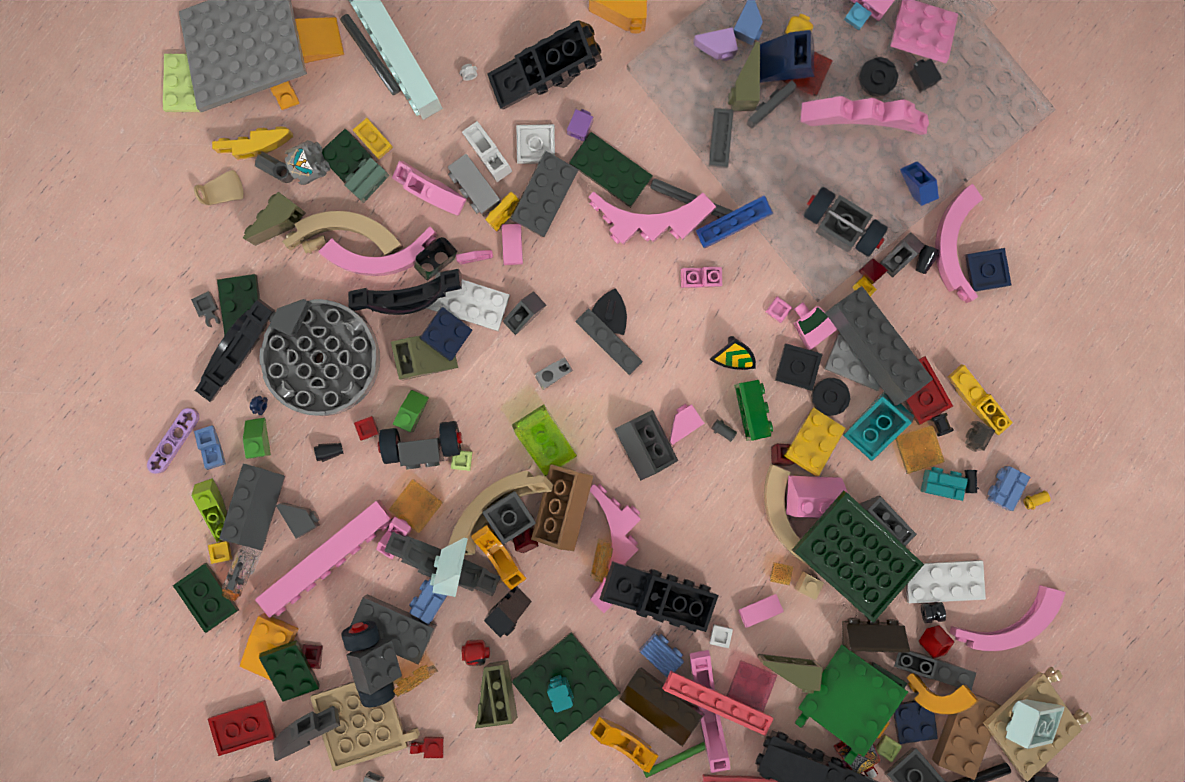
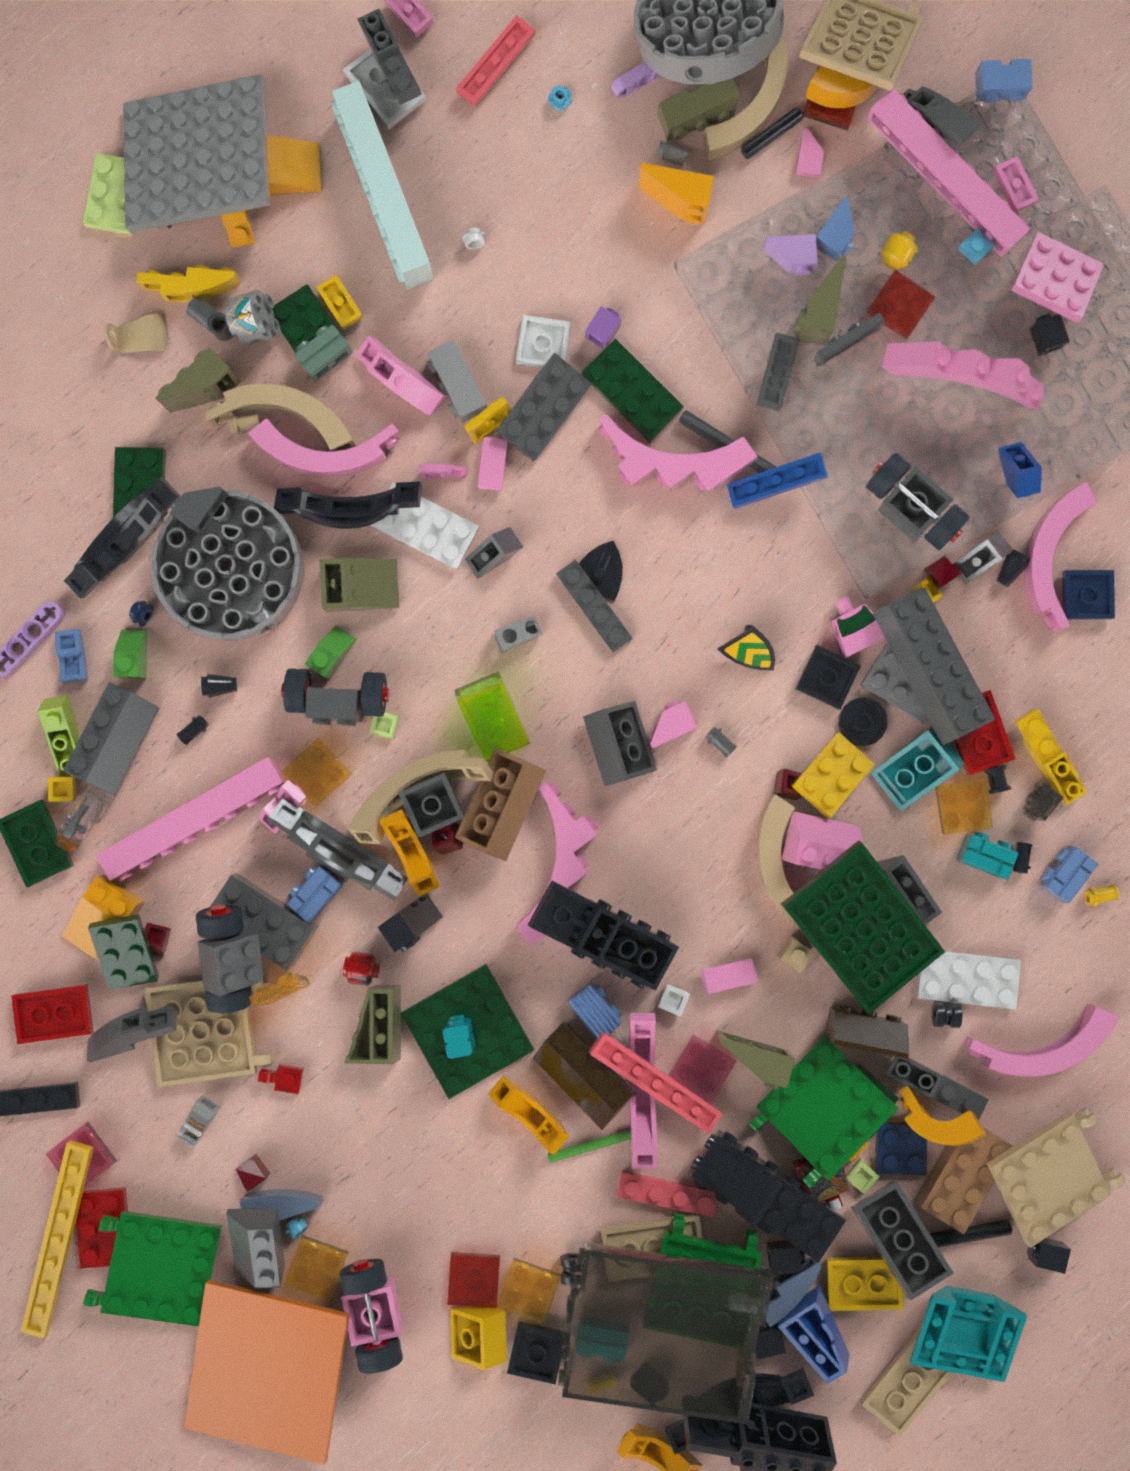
camera: 15 degrees right, 0 degrees up
(205, 306) = (95, 478): dark grey plate -> none
(298, 518) = (167, 764): dark grey slope -> none
(315, 487) = (193, 729): none -> black pin
(366, 428) = (271, 664): red plate -> none
(370, 54) = (354, 196): dark grey axle -> none
(439, 245) = (400, 450): black piece -> none
(446, 334) = (390, 562): dark blue plate -> none
(449, 568) = (345, 856): light aqua slope -> none
(487, 151) = (480, 342): white slope -> none
(546, 64) = (573, 243): black wedge -> none
(602, 554) = (535, 886): clear yellow plate -> none
(701, 277) = (724, 545): bright pink slope -> none
(753, 410) = (762, 721): green slope -> none
(778, 309) = (815, 601): bright pink tile -> none
(781, 573) = (763, 933): clear yellow plate -> none
(787, 57) = (878, 282): dark blue slope -> none
(878, 76) = (989, 327): black tile -> none
(936, 641) = (944, 1052): red panel -> none
(1034, 723) = (1051, 1174): light aqua slope -> none

